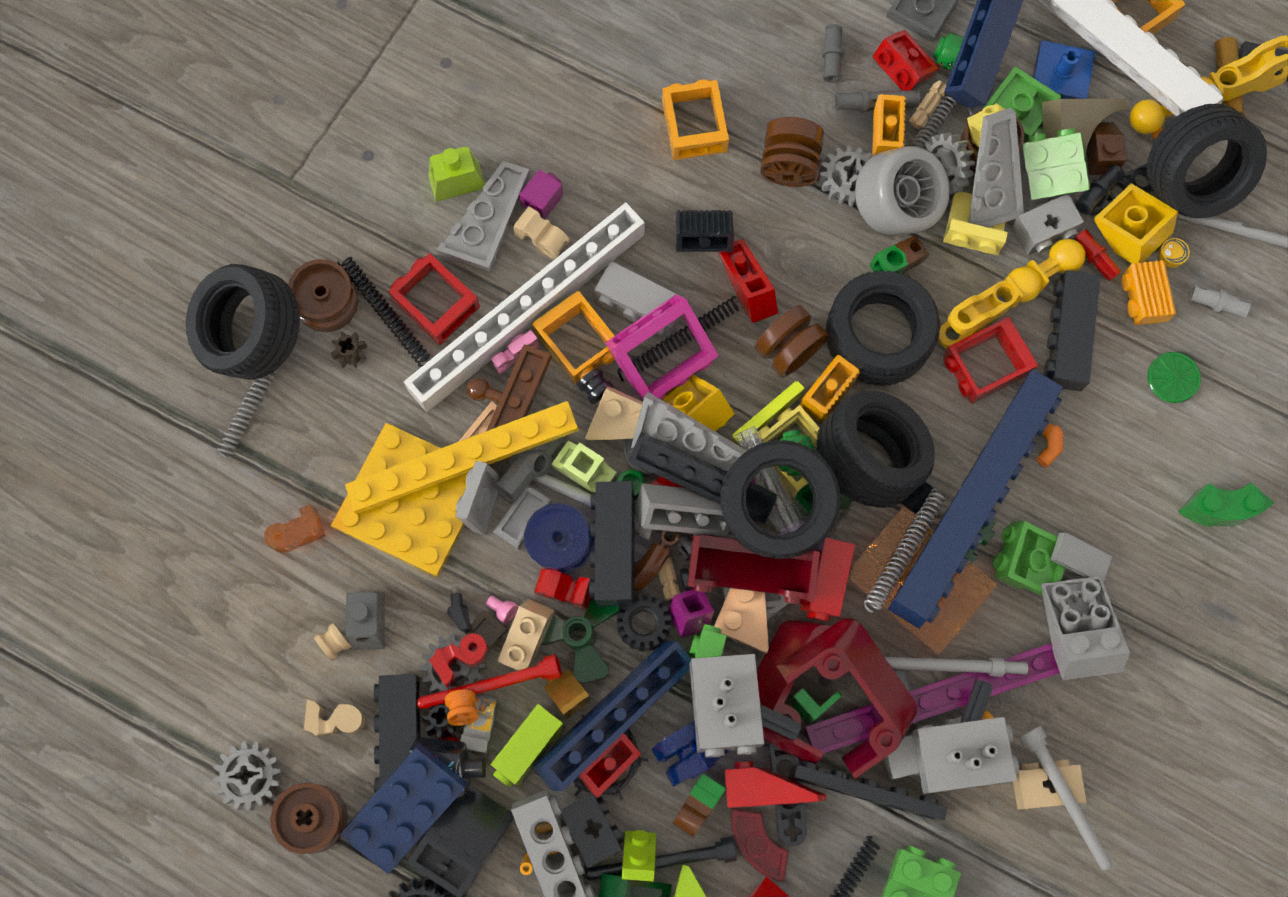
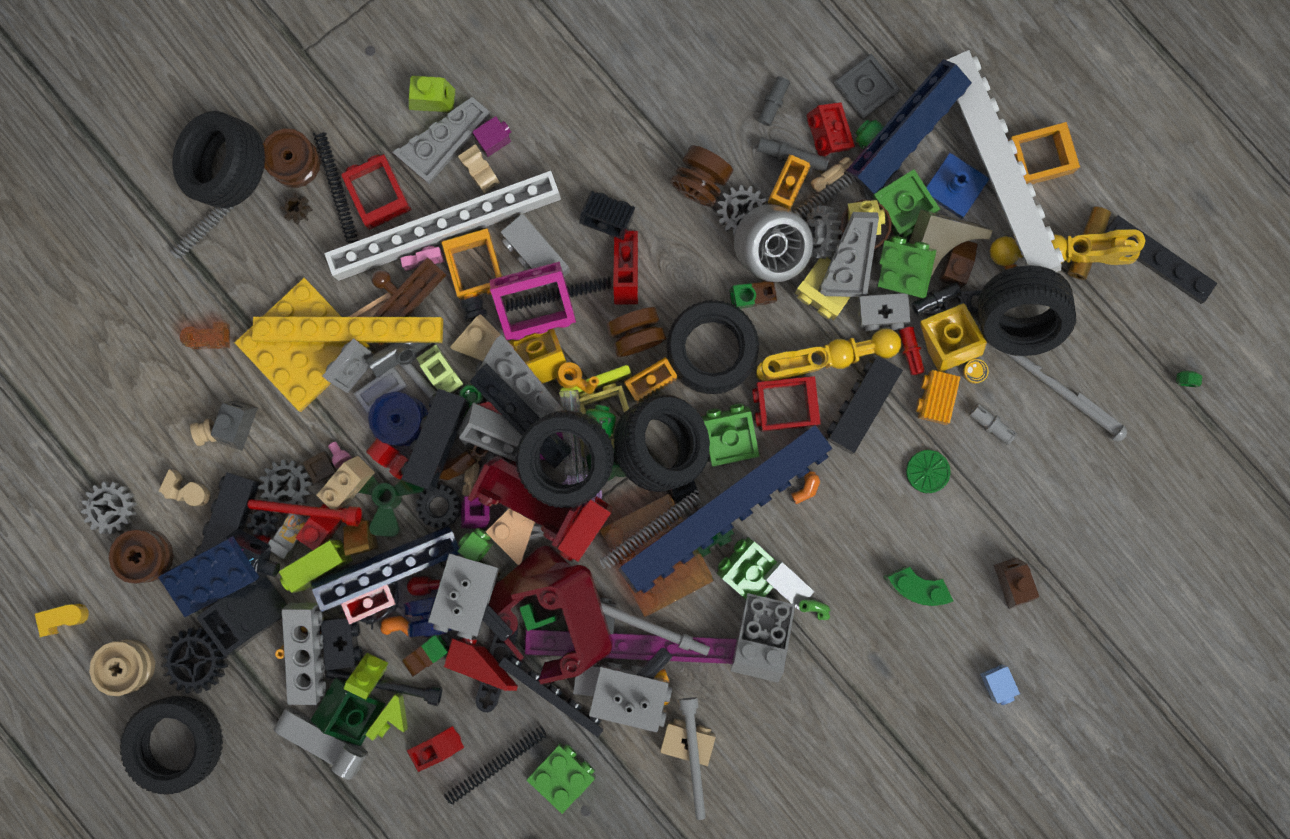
camera: 30 degrees right, 10 degrees up
(459, 613) = (304, 446): black bar -> none
(461, 707) = (276, 520): orange wheel -> none
(470, 652) = (297, 481): red leg -> none
(514, 703) = (318, 530): none -> red slope
(648, 781) = (393, 624): none -> orange arm
(661, 724) = (422, 585): none -> red cylinder
(696, 144) = (634, 140): light orange window -> none
(745, 412) = (577, 380): none -> light orange plate
(757, 846) = (457, 700): dark red tile -> none
(946, 414) = (731, 435): none -> bright green plate
(1126, 572) = (815, 606): none -> bright green arm

